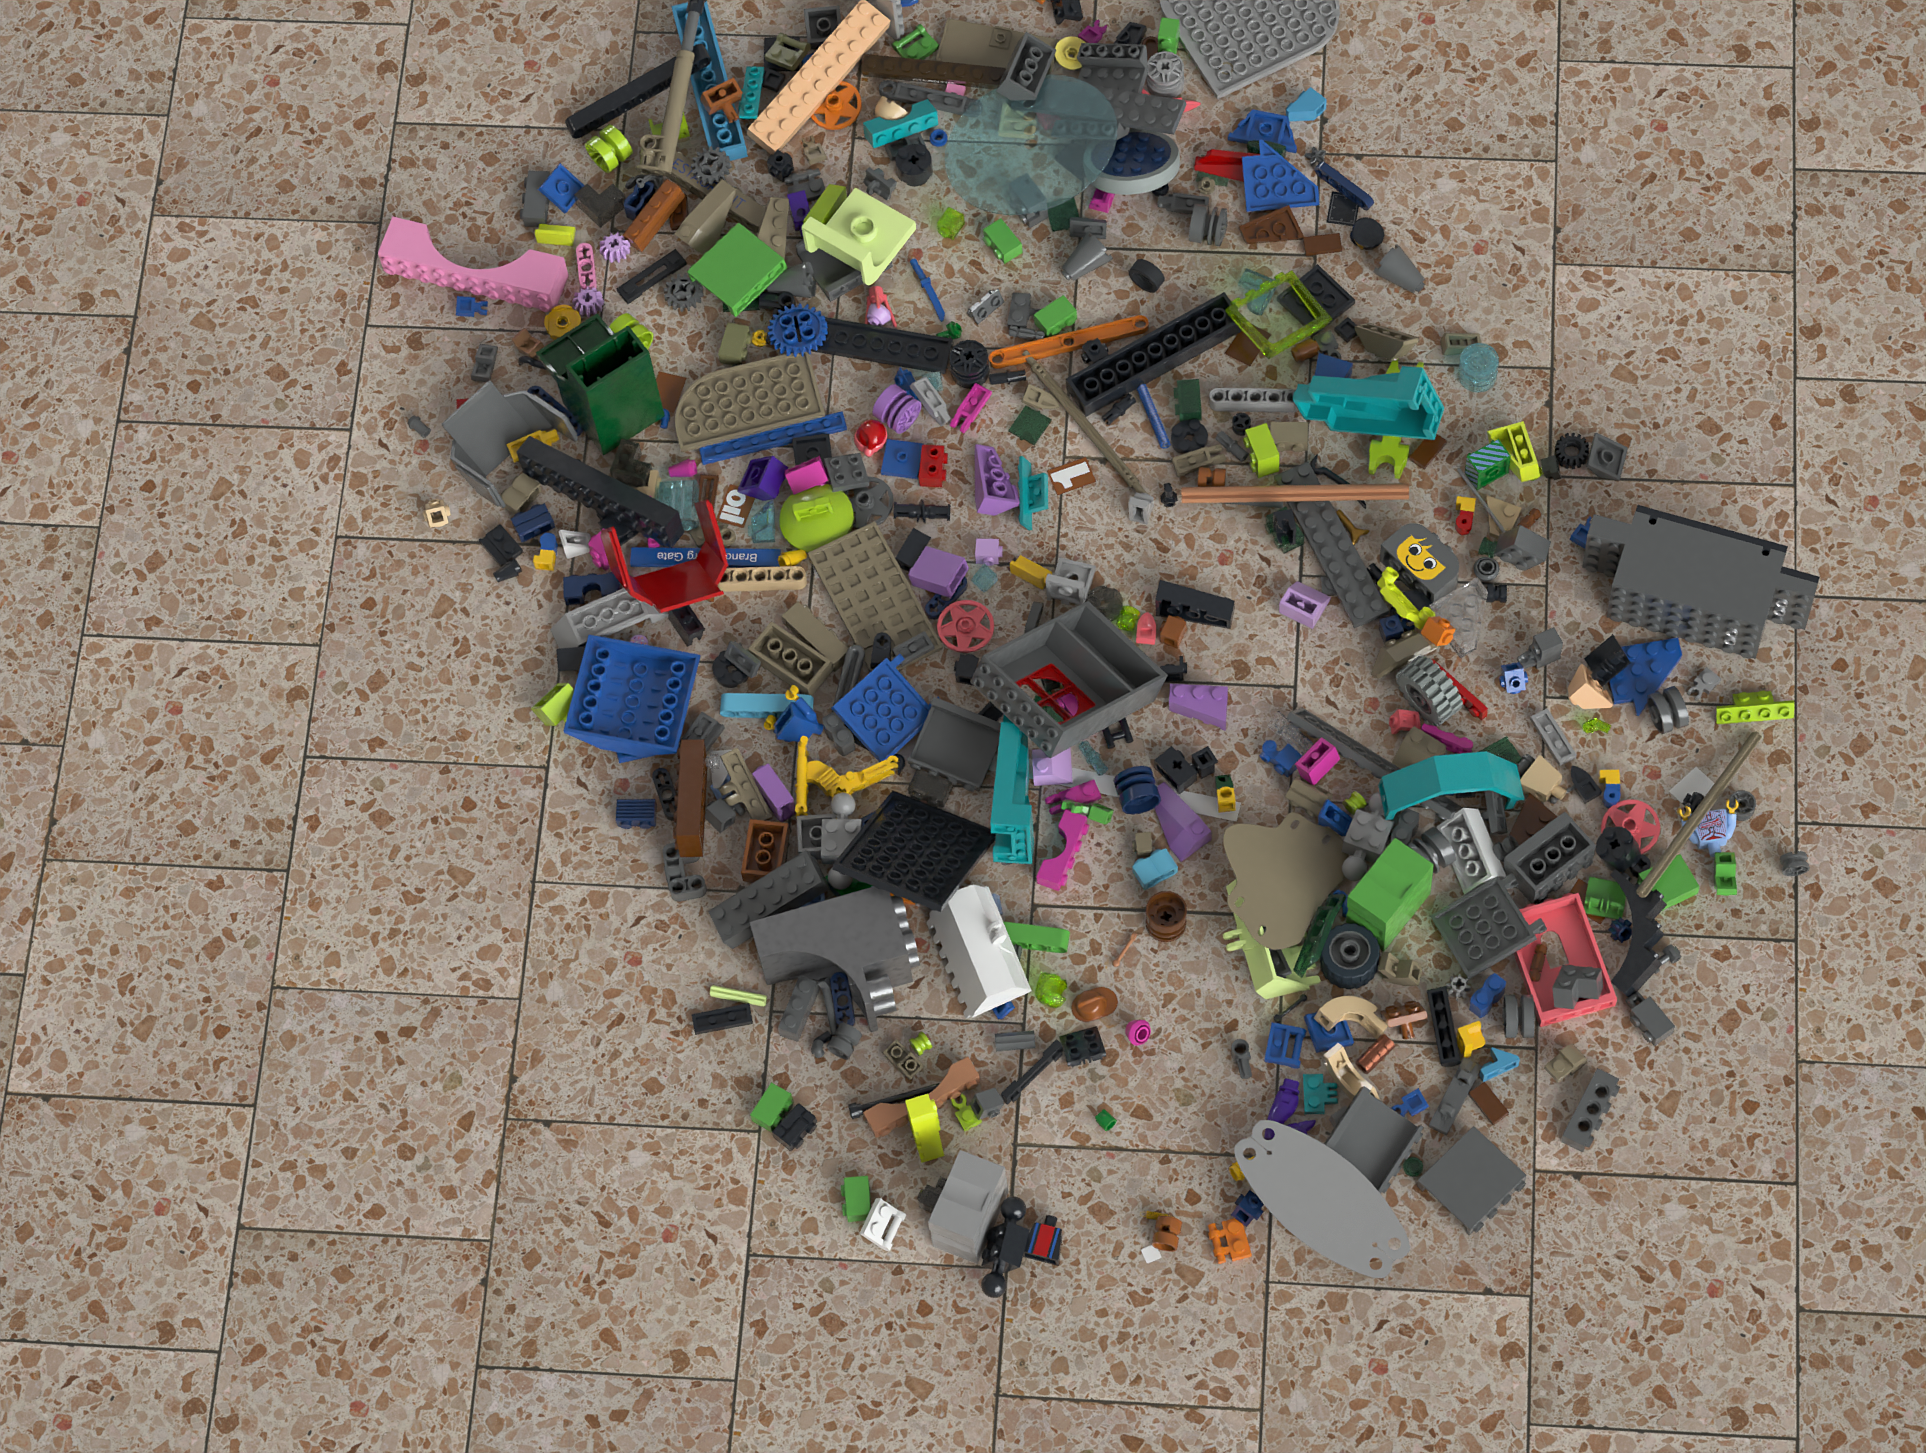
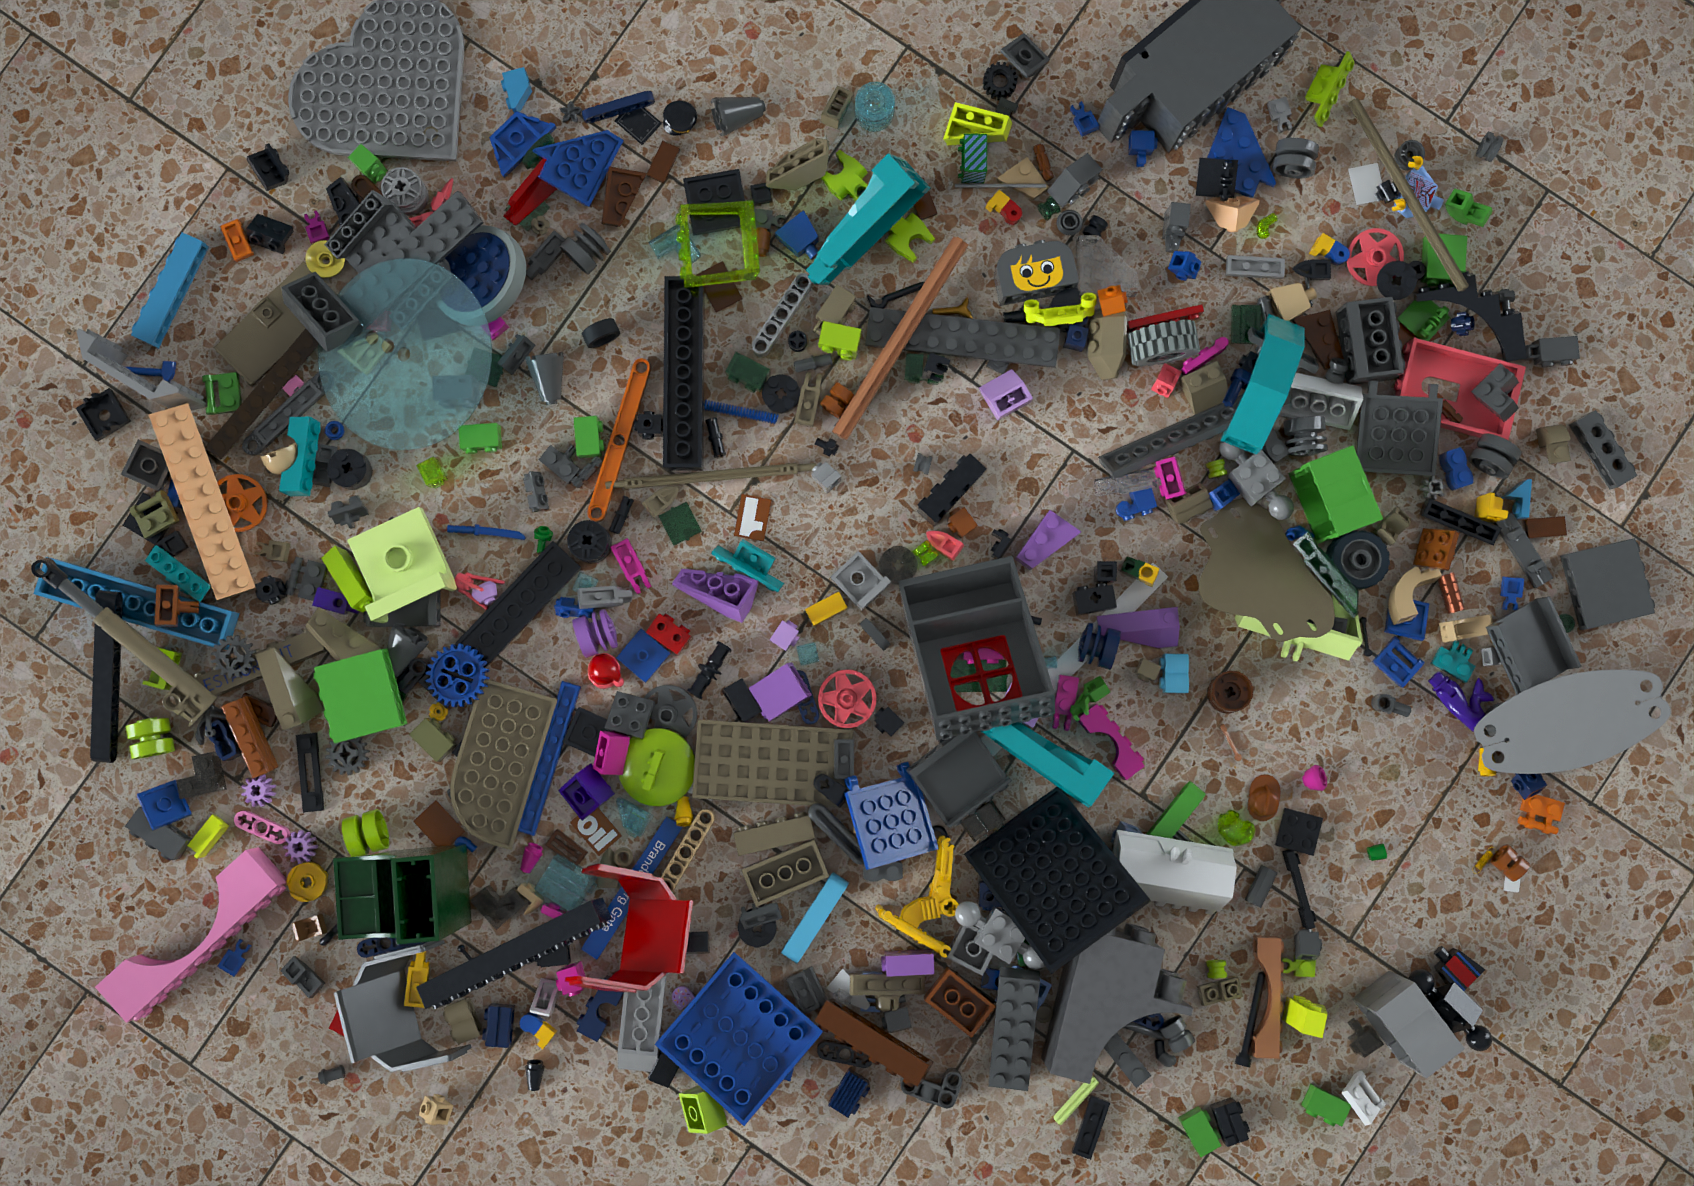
camera: 70 degrees left, 20 degrees up
(501, 545) = (503, 1065): black plate -> none
(795, 721) = (852, 904): blue torso -> none
(1202, 574) = (923, 463): none -> dark grey wheel
(1595, 588) = (1141, 144): none -> blue brick

